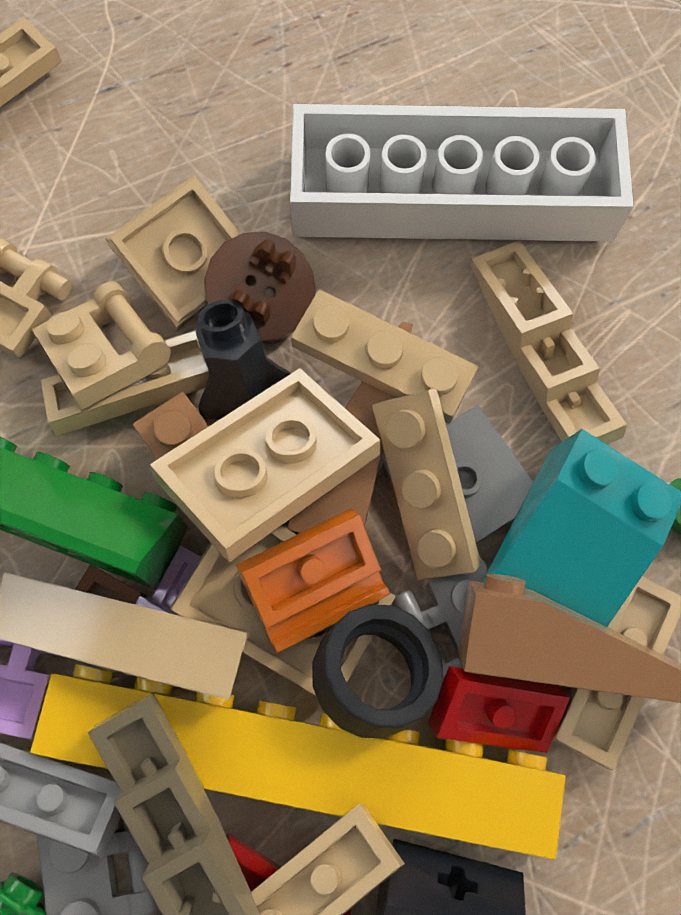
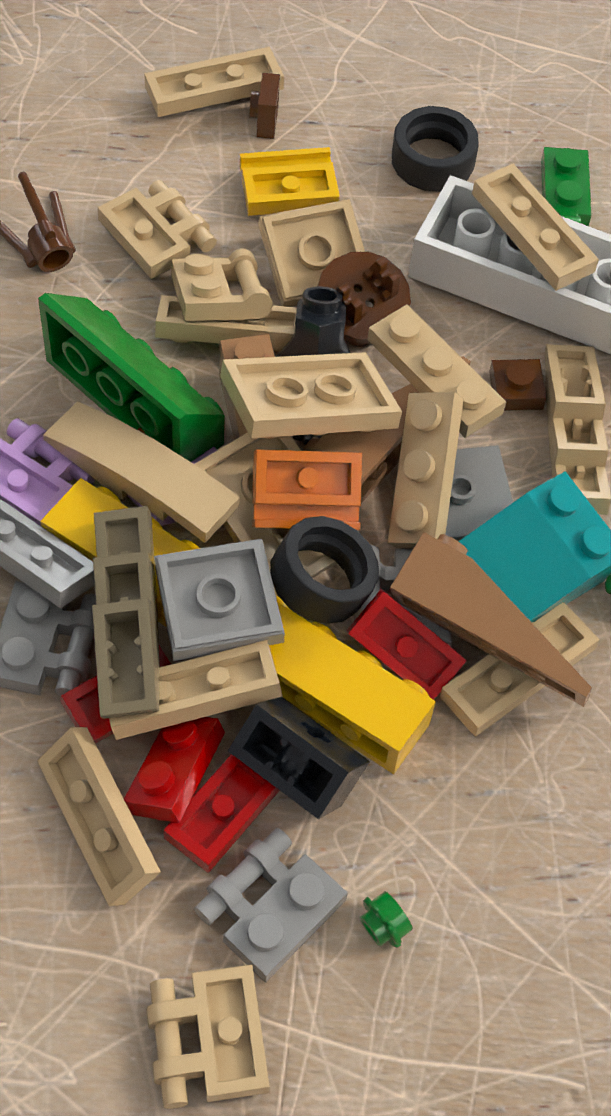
camera: 20 degrees right, 15 degrees down
(51, 91) = (265, 105): none -> reddish brown plate
(117, 174) = (287, 180): none -> yellow plate
(253, 37) = (439, 124): none -> black tyre
(279, 777) = (218, 599): none -> light grey plate
(407, 59) = (567, 182): none -> green plate
(416, 134) = (535, 226): none -> tan plate
(462, 318) = (519, 383): none -> reddish brown plate

